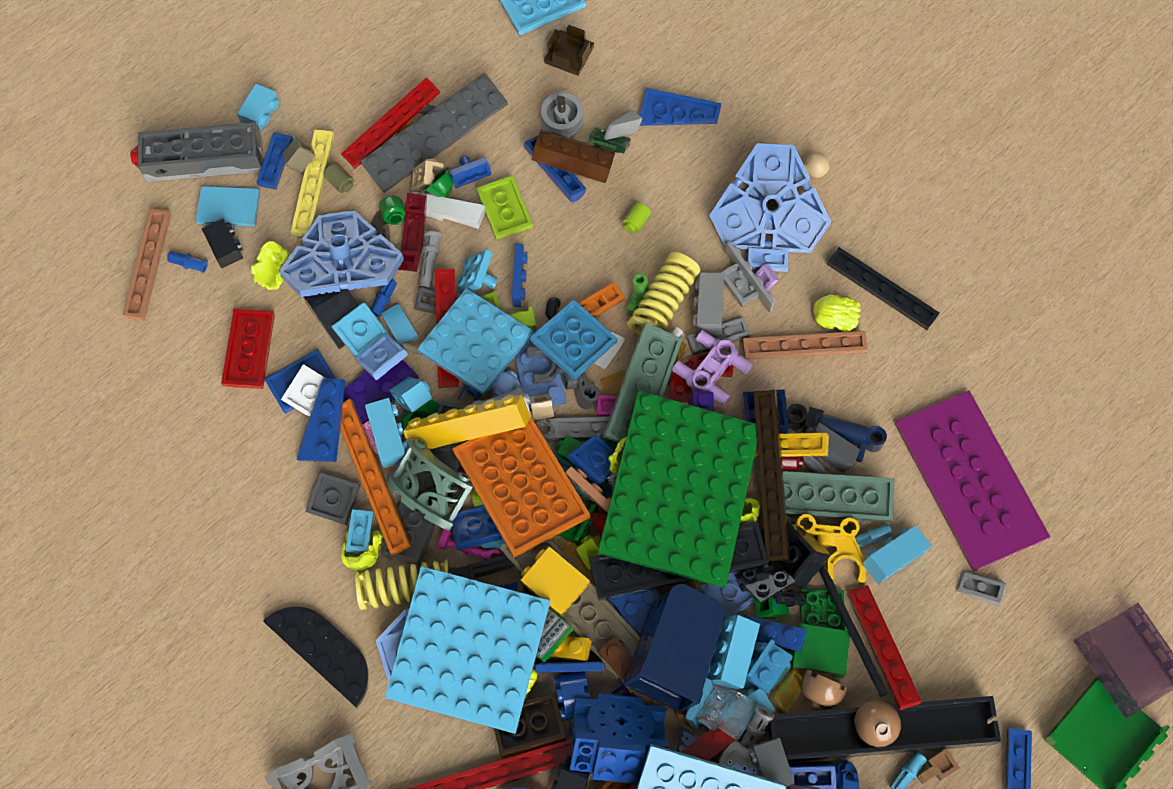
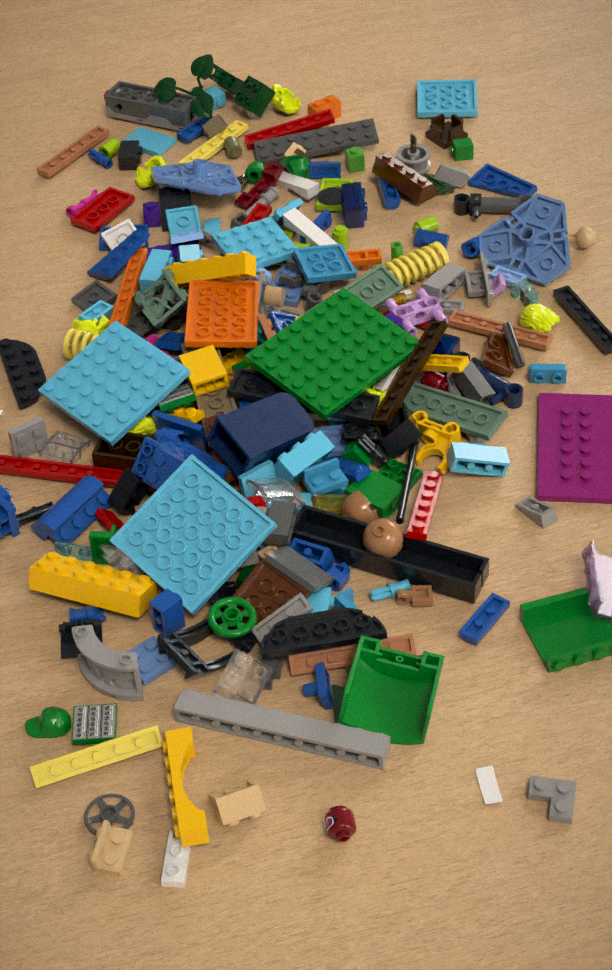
camera: 30 degrees right, 25 degrees down
(191, 240) = (110, 148): none -> lime brick
(215, 367) = (72, 210): none -> dark pink piece
(247, 87) = (203, 104): none -> dark green plant
(312, 83) = (250, 94): none -> dark green brick
(315, 334) = (152, 214): none -> dark purple brick
(350, 75) = (283, 100): none -> neon yellow hair
(383, 298) = (213, 212): blue axle -> none
(409, 70) = (326, 103): none -> orange brick
(414, 754) = (28, 437): none -> light grey plate
(451, 746) = (64, 447): none -> clear slope
(495, 142) = (355, 159): none -> bright green brick
(506, 214) = (330, 196): none -> black sticker
(522, 290) = (302, 225): none -> white slope
(547, 228) = (353, 205): none -> clear blue brick
(555, 279) = (341, 235): none -> lime brick
(604, 73) = (462, 149): none -> green brick
(655, 237) = (426, 237): none -> blue tile
(673, 157) = (476, 204): none -> dark grey piece
(704, 228) = (471, 247): none -> blue rock
(802, 277) = (525, 292): none -> clear light blue leg
(826, 387) = (497, 355): none -> reddish brown wing
(834, 364) = (513, 345): none -> dark grey axle
(886, 385) = (547, 373): none -> dark azure bracket

